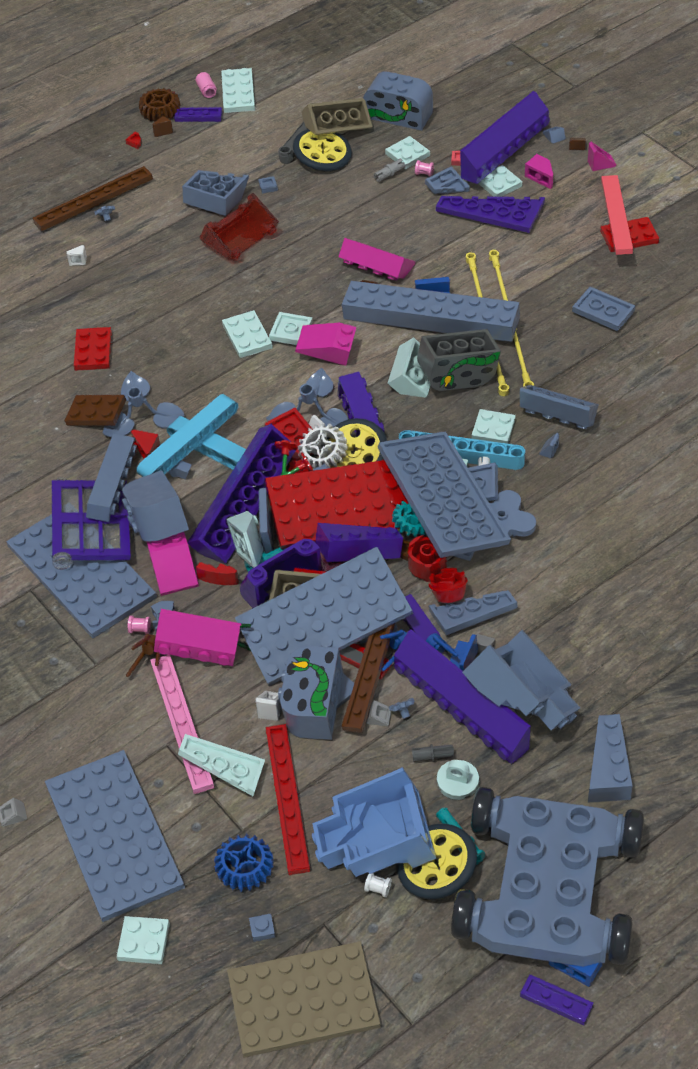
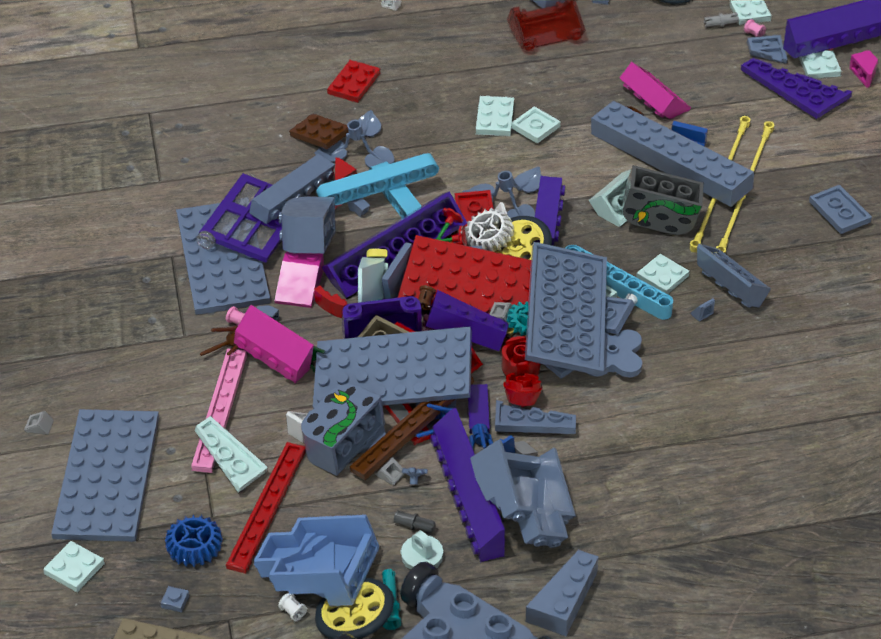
camera: 25 degrees right, 5 degrees down
(238, 509) = (381, 253): none -> light yellow tile
(309, 532) = (428, 292): none -> reddish brown bush
(326, 341) = (559, 146): dark pink slope -> none
(383, 519) = (500, 310): none -> light grey slope

